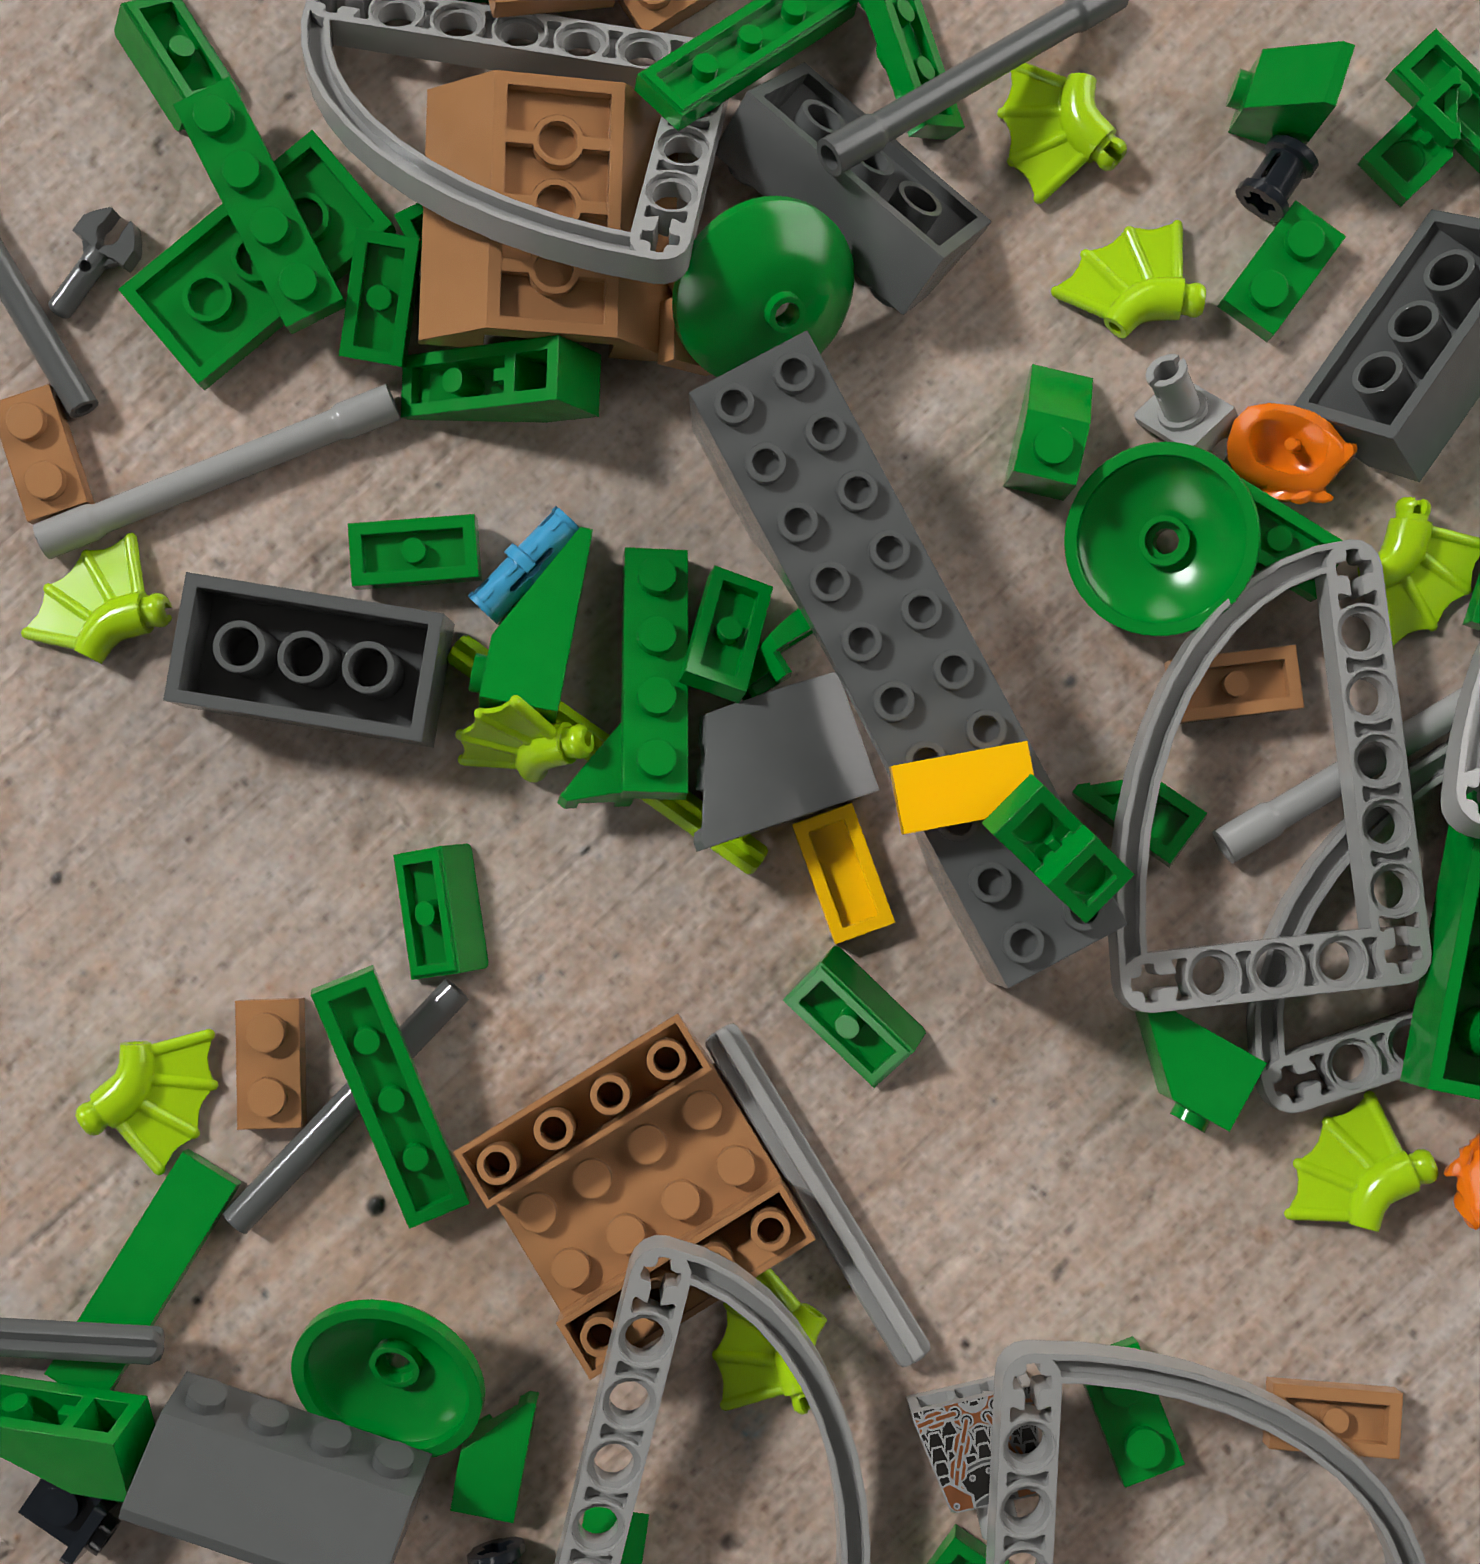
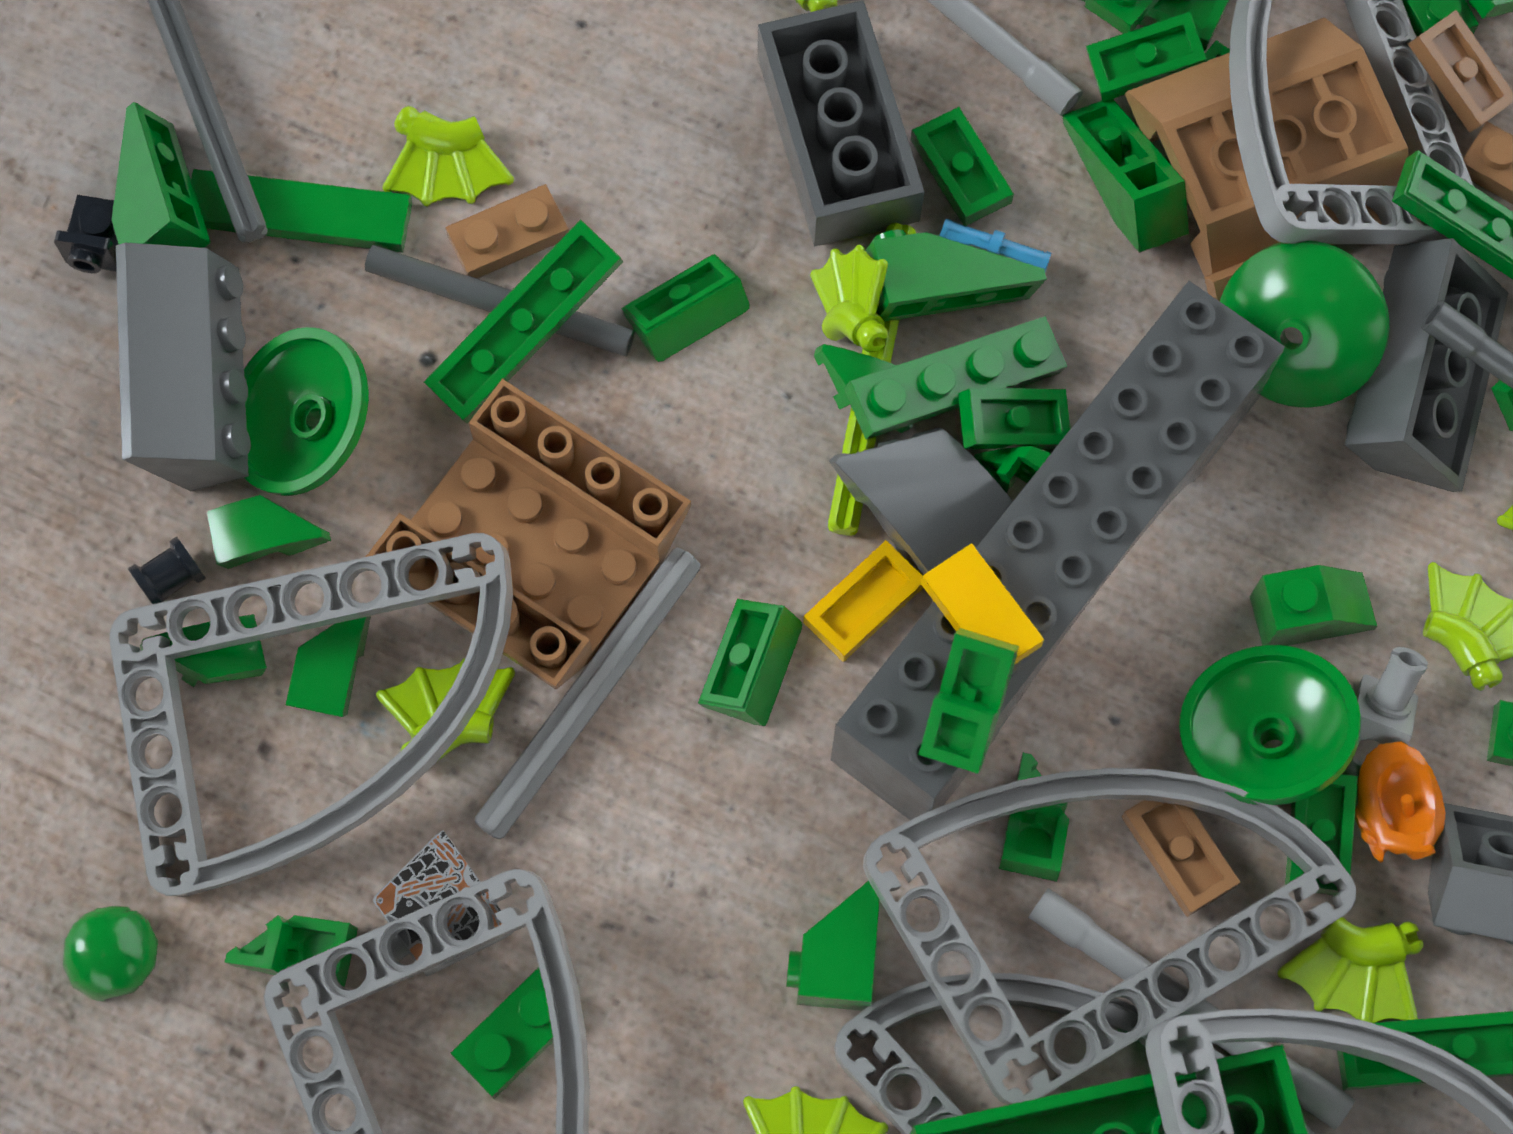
camera: 65 degrees right, 15 degrees down
(681, 1454) = (327, 668): none -> green slope

